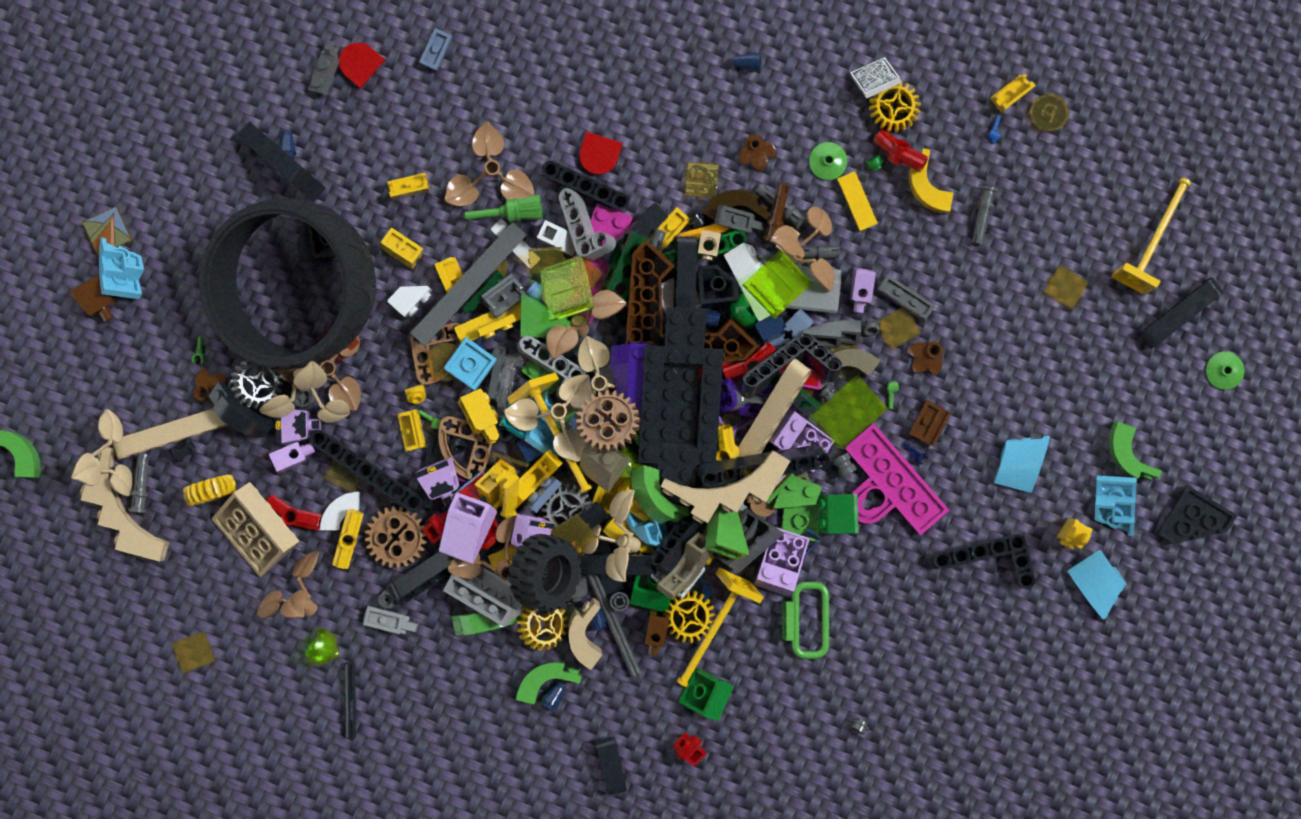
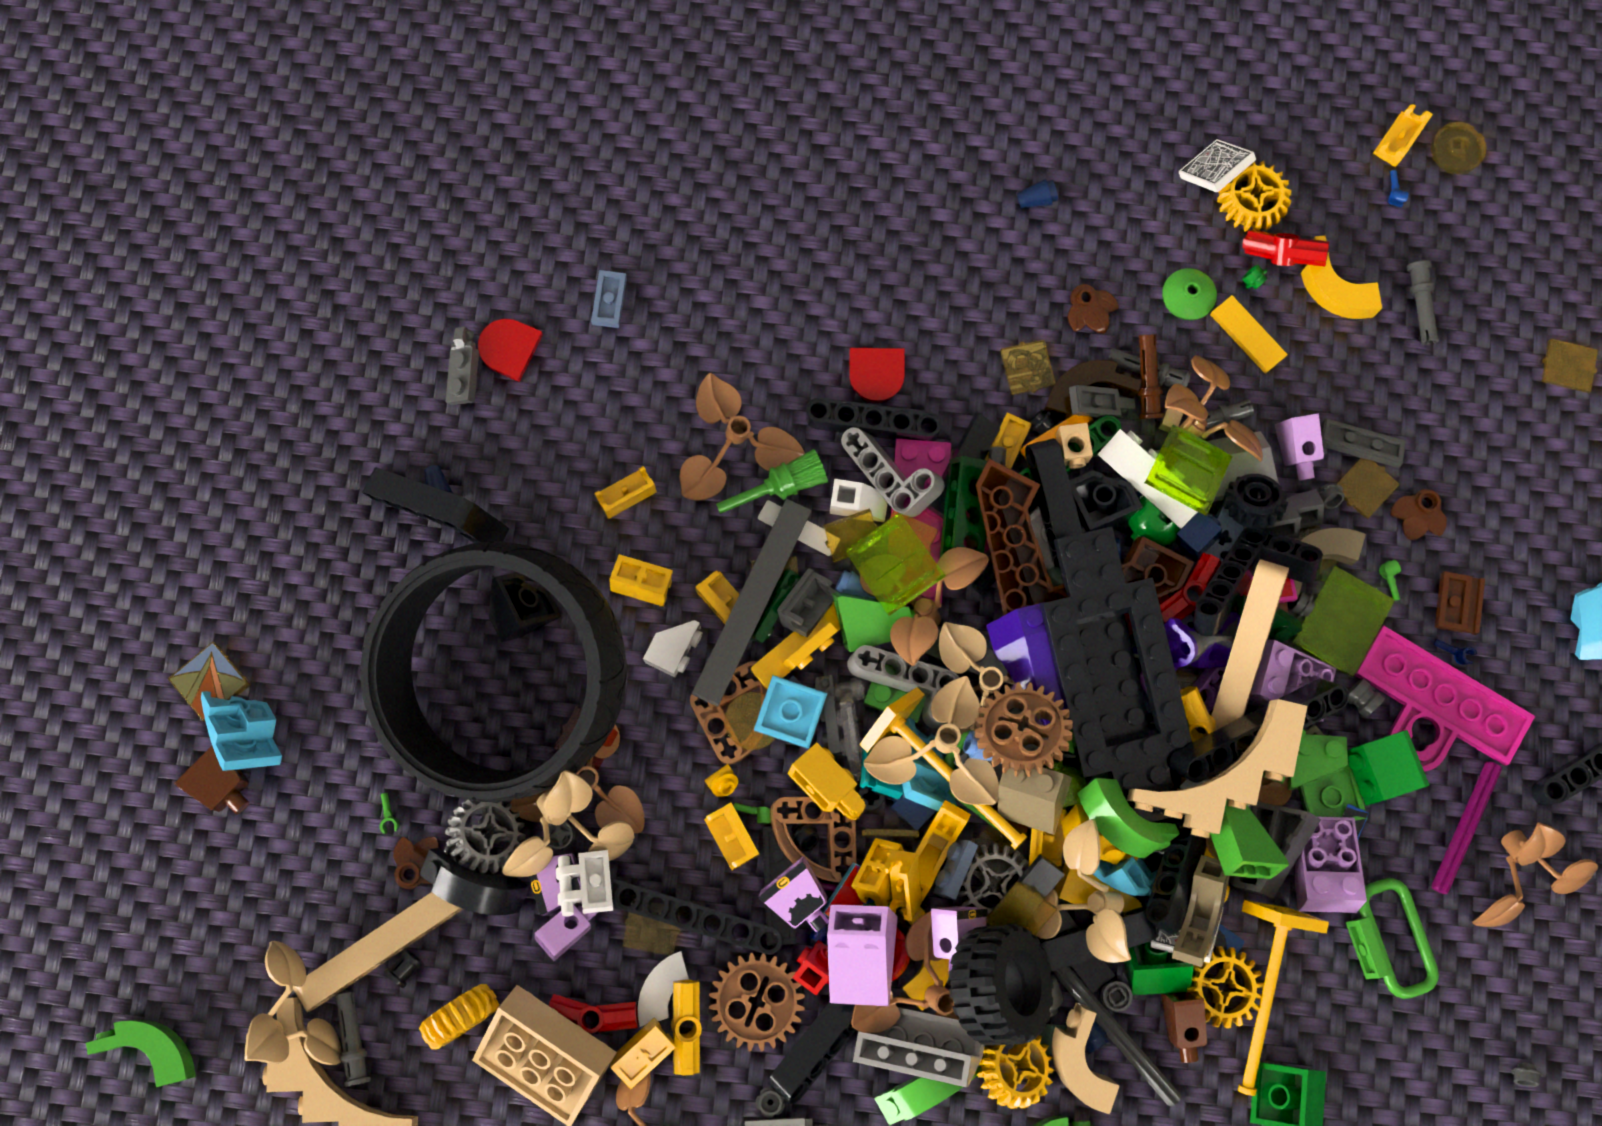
camera: 20 degrees left, 10 degrees down
(315, 432) = (594, 879): none -> white plate
(315, 546) = (642, 1053): none -> yellow hinge
(823, 321) = (1255, 501): none -> black gear
(880, 566) = (1466, 827): none -> magenta axle
(909, 589) = (1542, 844): none -> medium nougat plant

